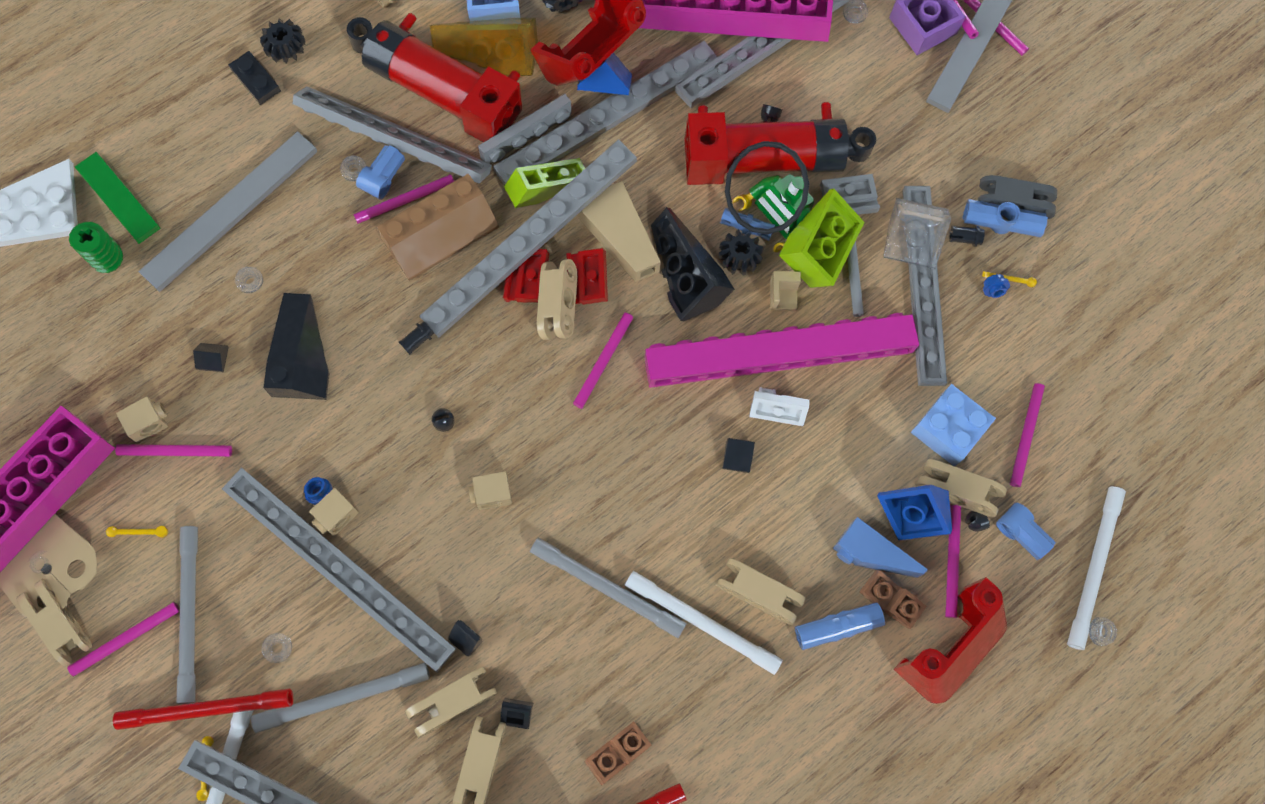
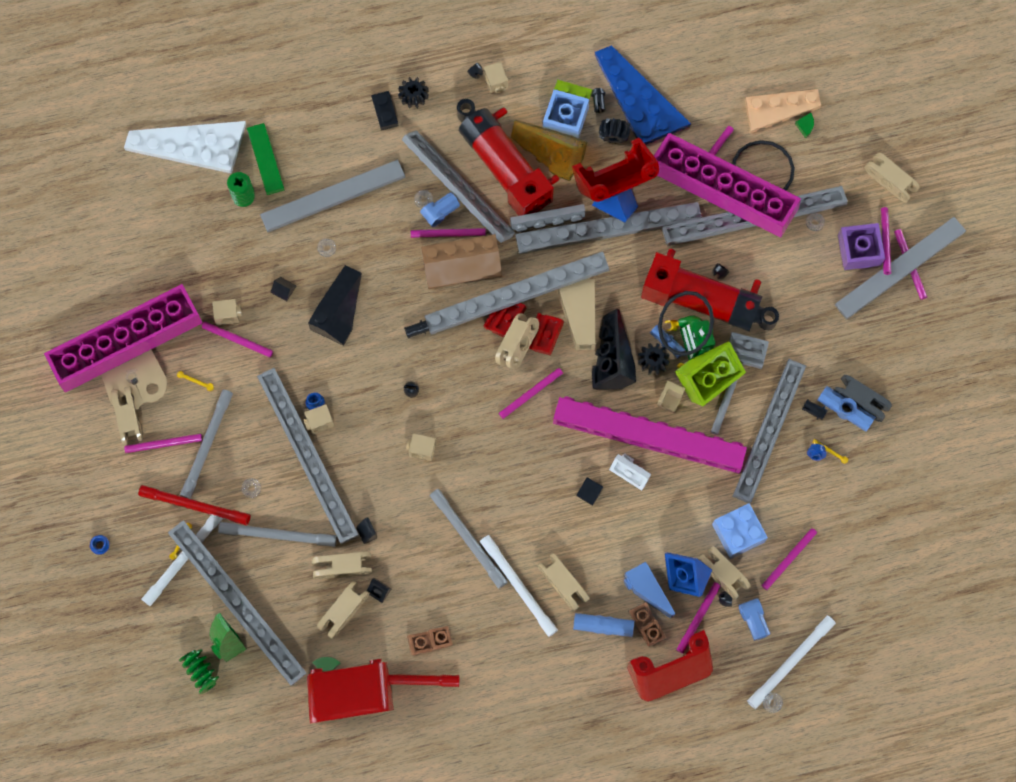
camera: 30 degrees right, 0 degrees up
(541, 182) = (543, 258): lime slope -> none
(916, 233) = (777, 394): clear slope -> none

